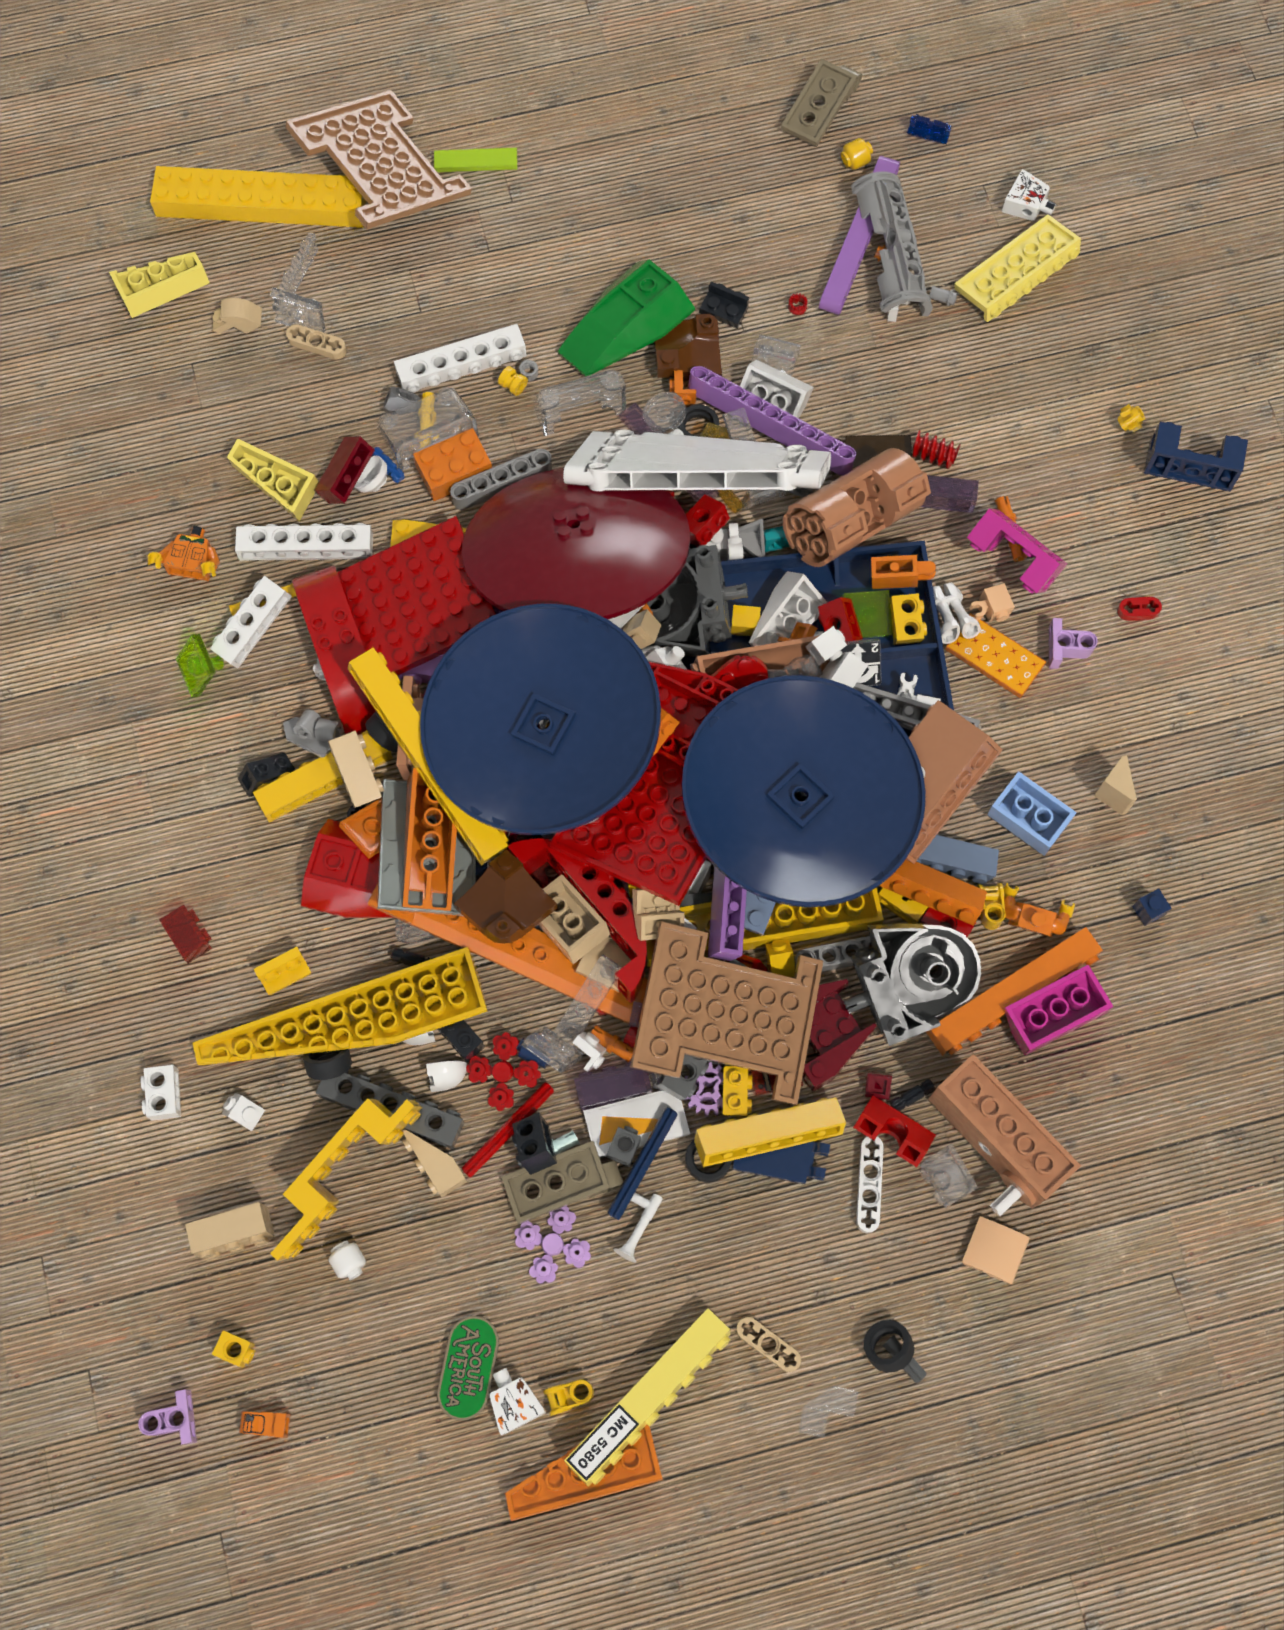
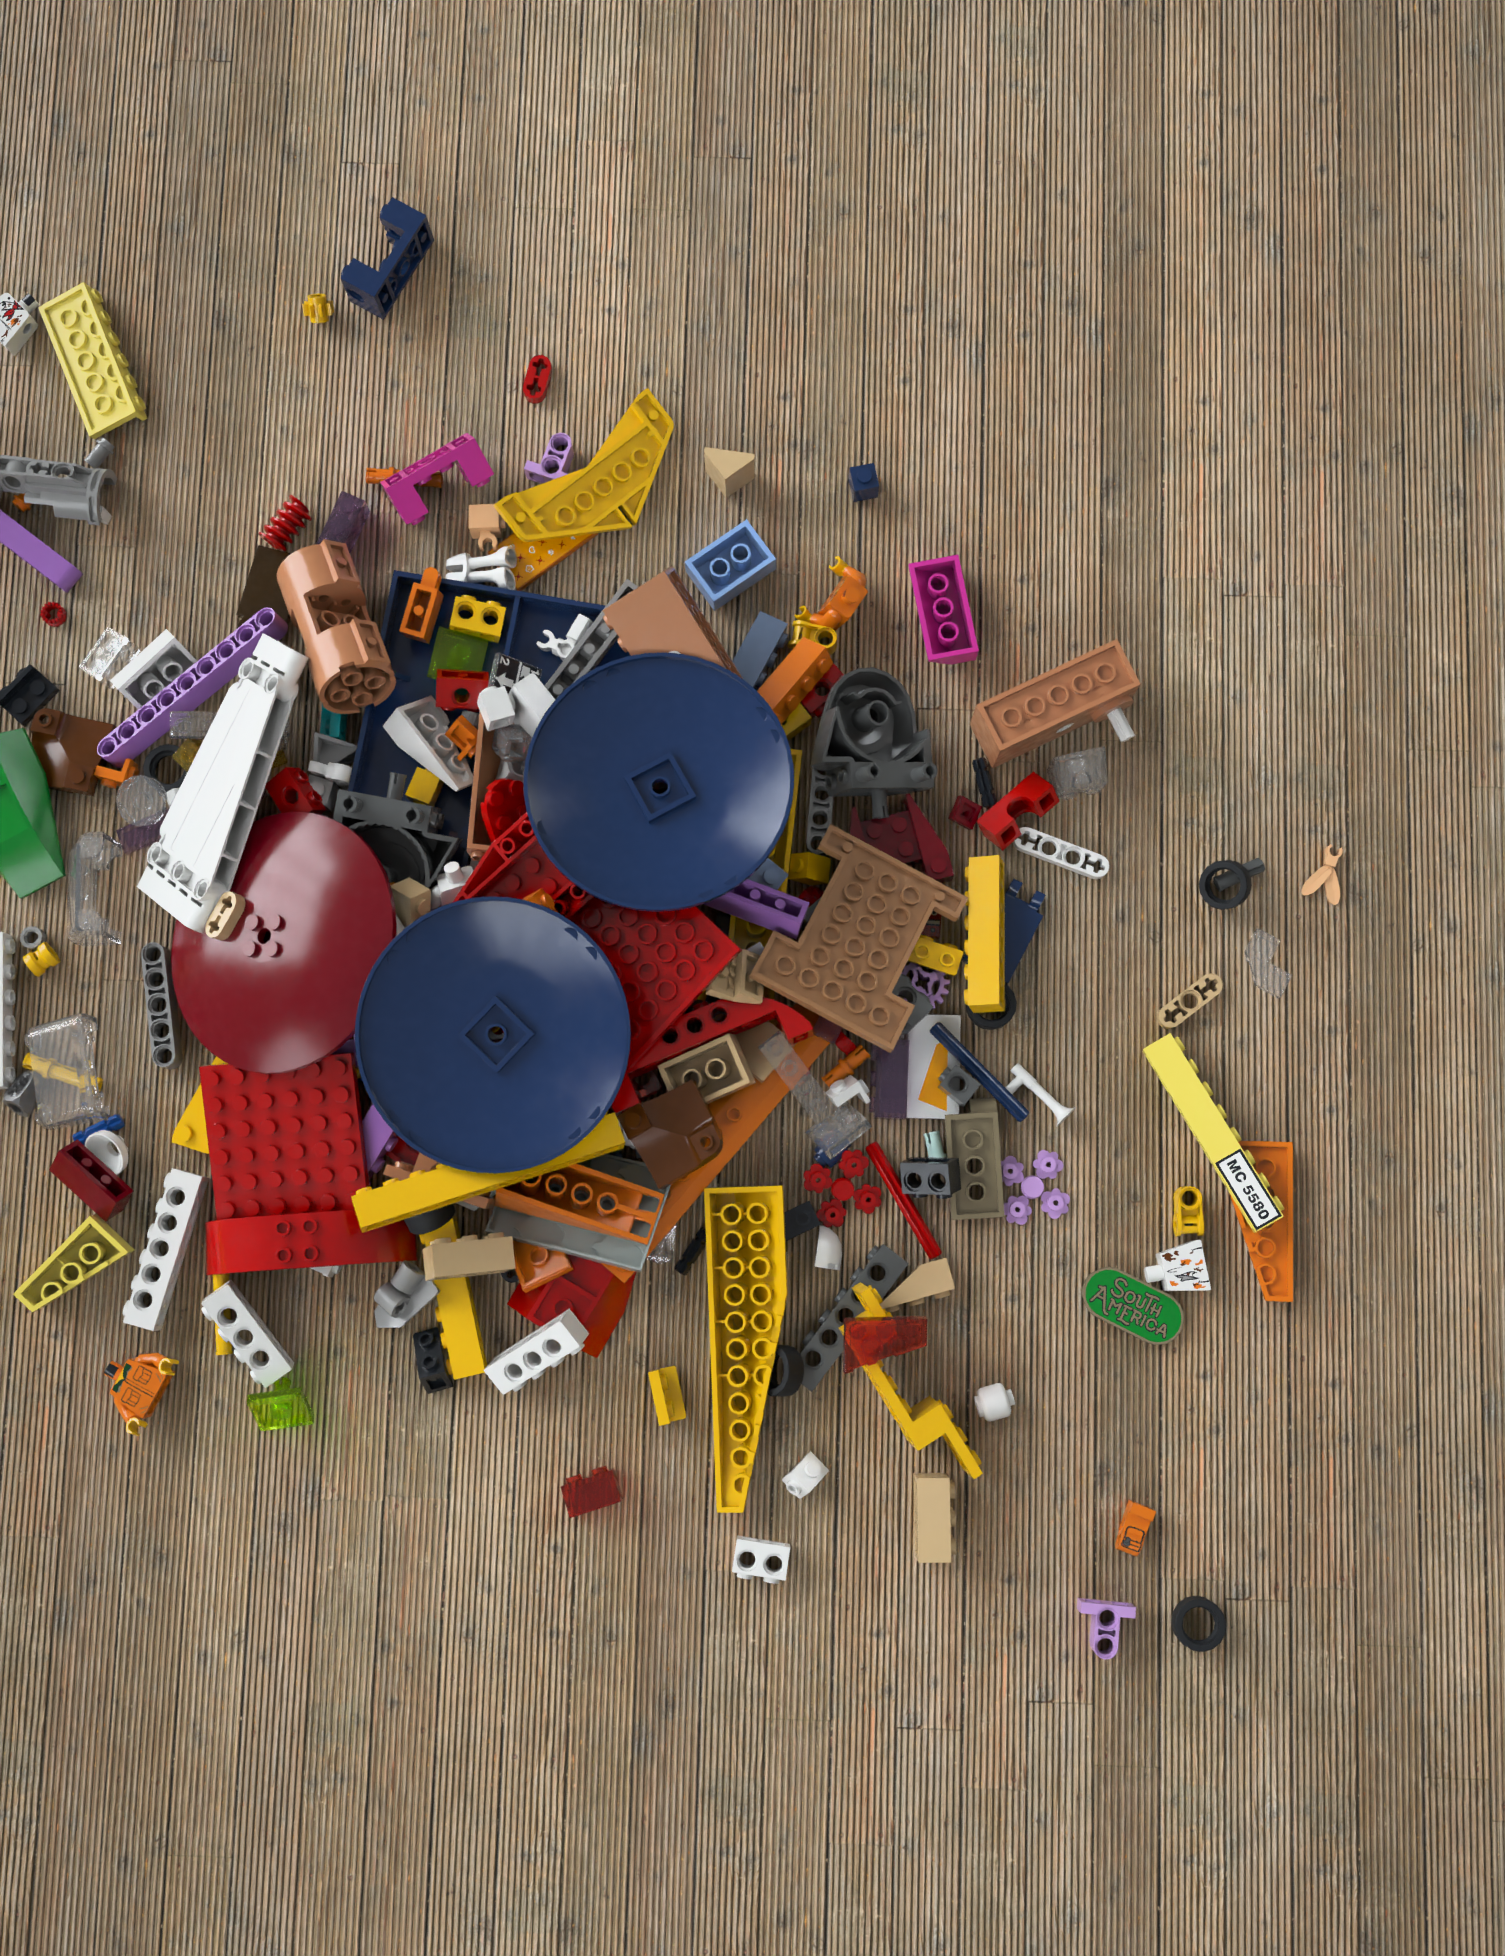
camera: 70 degrees left, 10 degrees up
(171, 1505) = (1219, 1623): none -> black tyre
(223, 1347) = (1053, 1554): yellow brick -> none
(290, 849) = (521, 1361): none -> white brick
(371, 1126) = (880, 1337): none -> clear red wing
(451, 462) = (124, 1055): orange brick -> none
(582, 492) = (225, 916): none -> tan beam
(932, 1446) = (1326, 875): none -> light nougat piece
(989, 1006) = (907, 642): orange brick -> none
(995, 1250) = (1159, 752): light nougat slope -> none
(1074, 695) = (591, 497): none -> yellow wing

